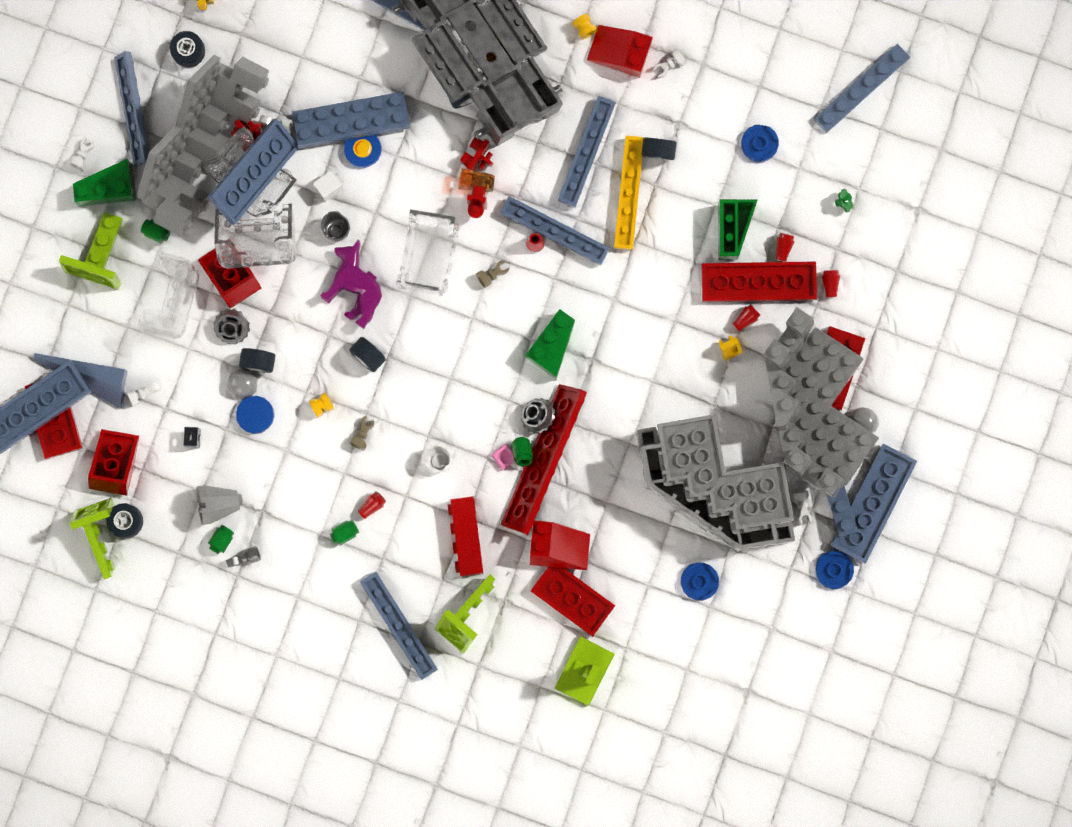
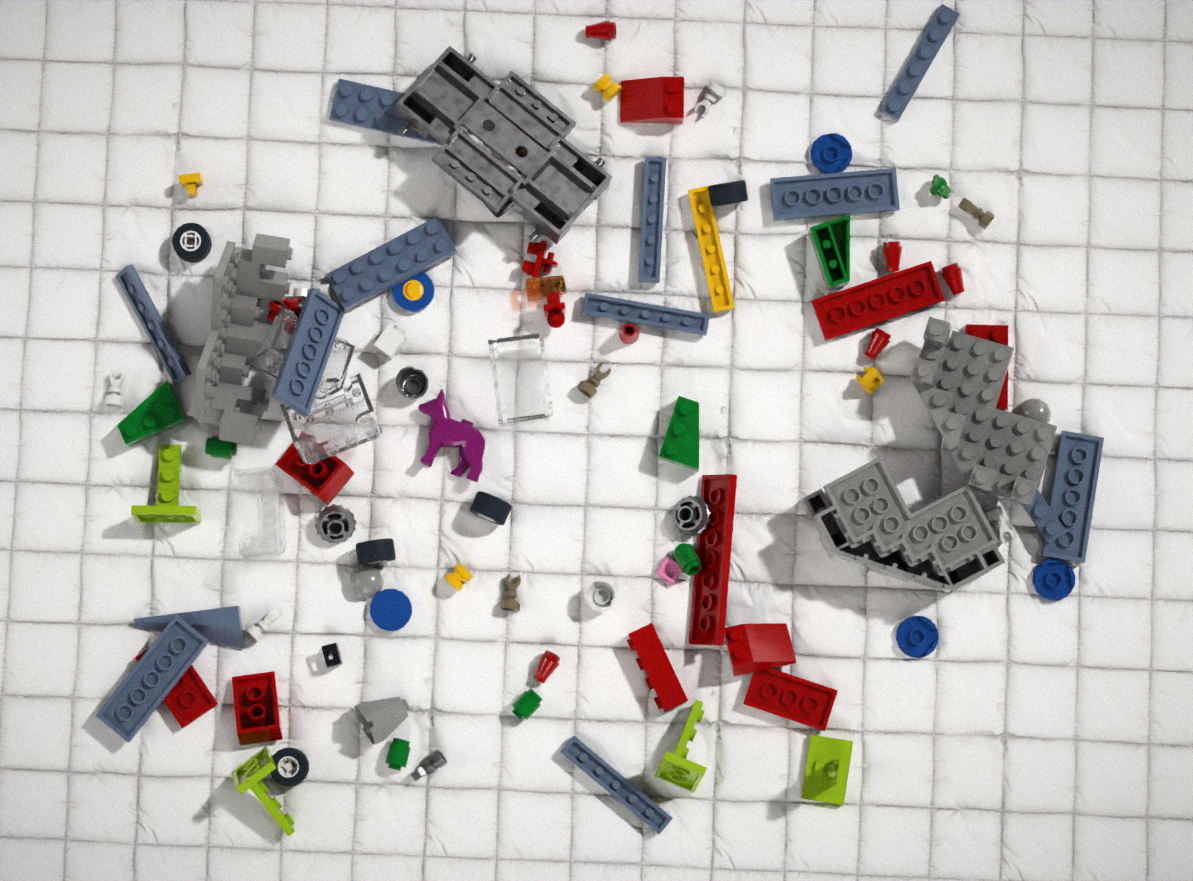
camera: 25 degrees left, 0 degrees up
(751, 178) = (834, 194): none -> sand blue plate
(875, 240) = (969, 207): none -> dark tan piece

